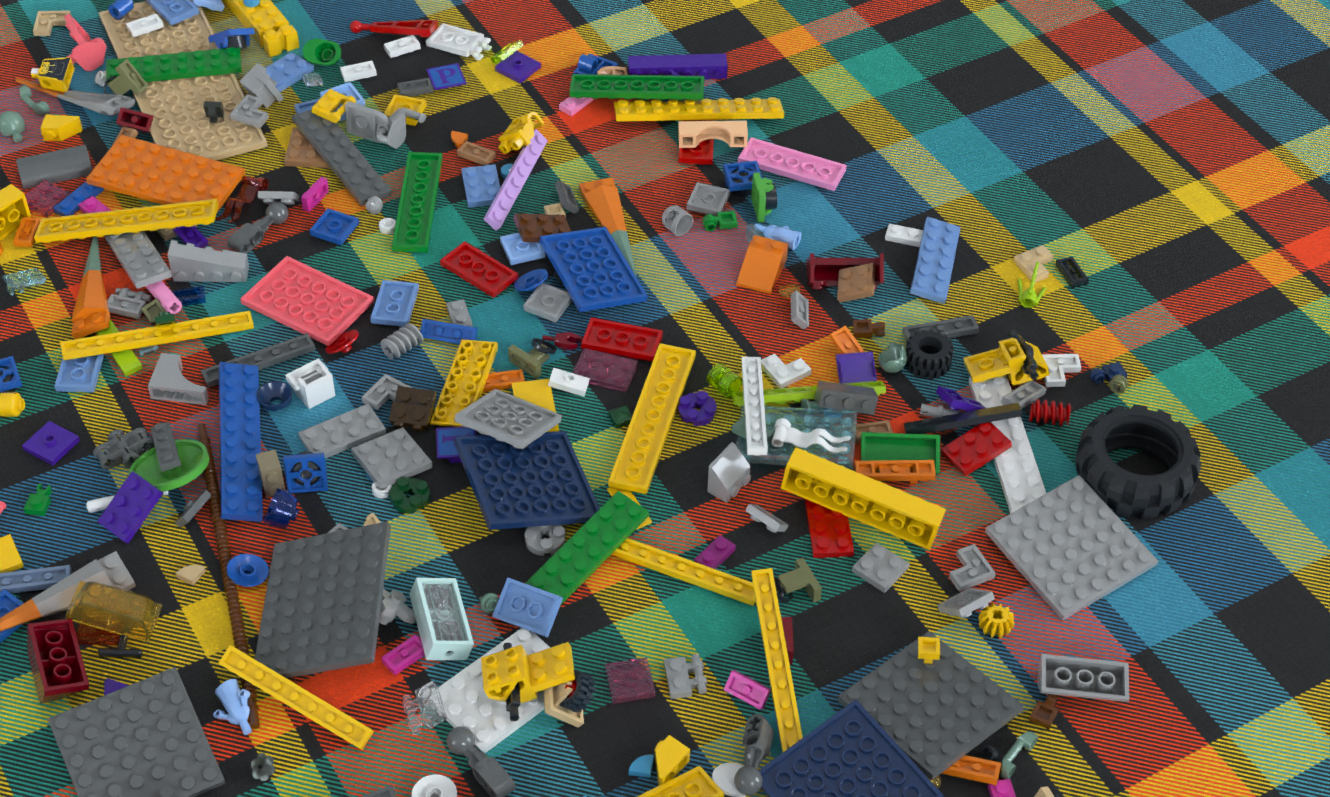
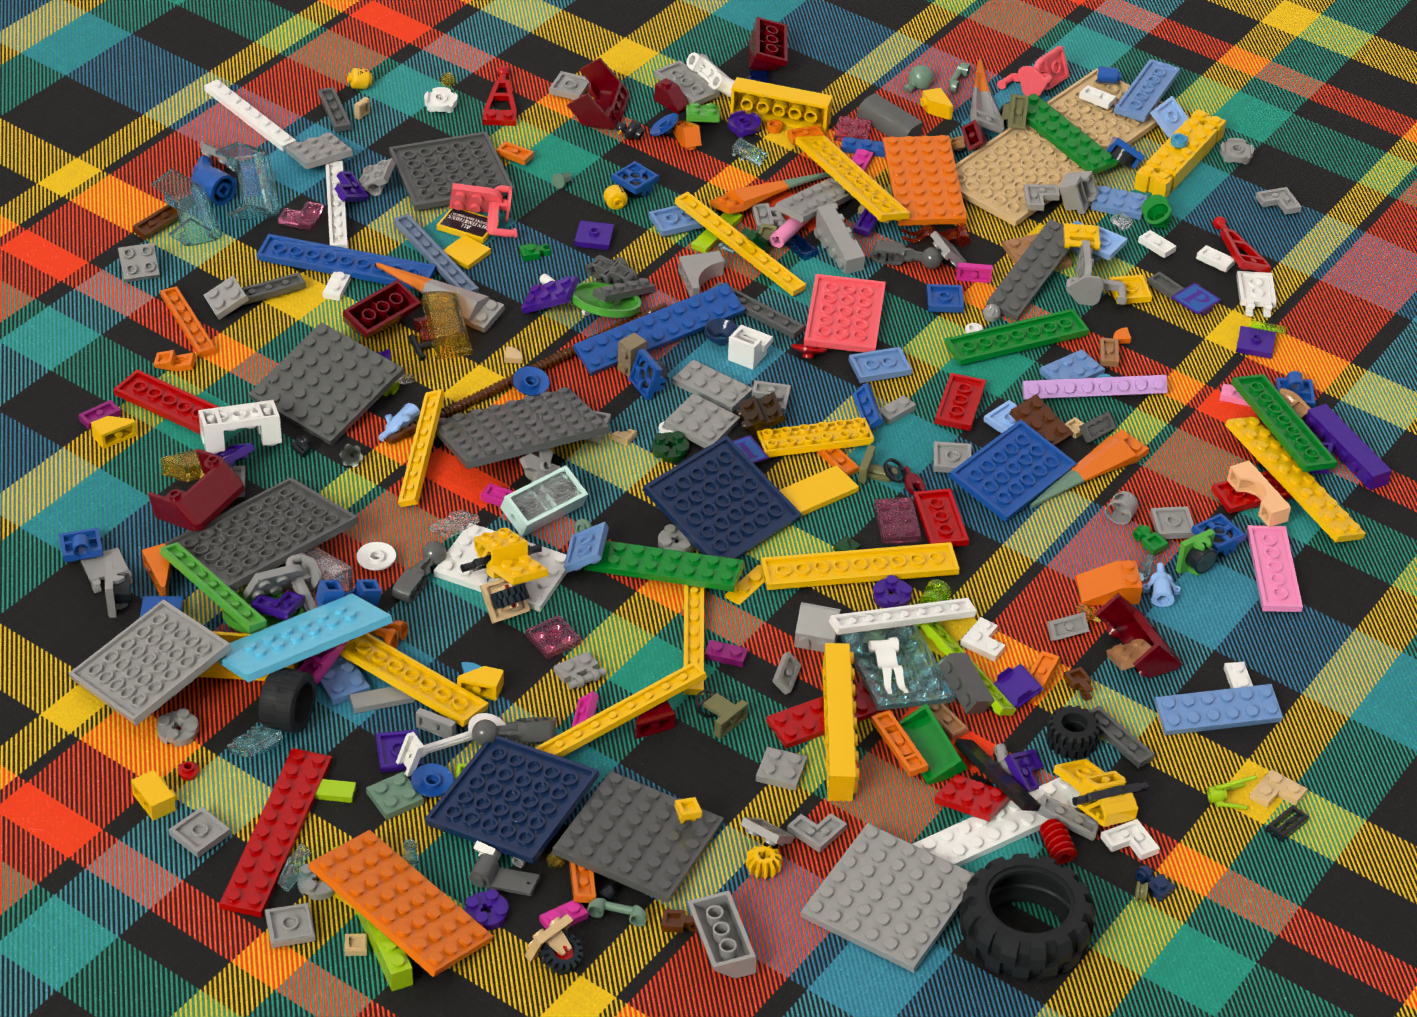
camera: 65 degrees right, 5 degrees down
(46, 20) = (1071, 49): tan plate -> none
(55, 73) = (994, 73): torso -> none
(192, 508) = (574, 329): dark grey plate -> none
(213, 110) = (1020, 174): pearl dark grey tile -> none
(281, 509) = (600, 374): clear blue cone -> none
(401, 340) = (836, 383): light grey piece -> none
(508, 418) = (779, 466): light grey plate -> none
(519, 132) = (1151, 365): yellow hips -> none
(531, 280) = (968, 437): blue dish -> none
(568, 382) = (863, 500): white plate -> none
(893, 359) = (1044, 708): sand green hair -> none

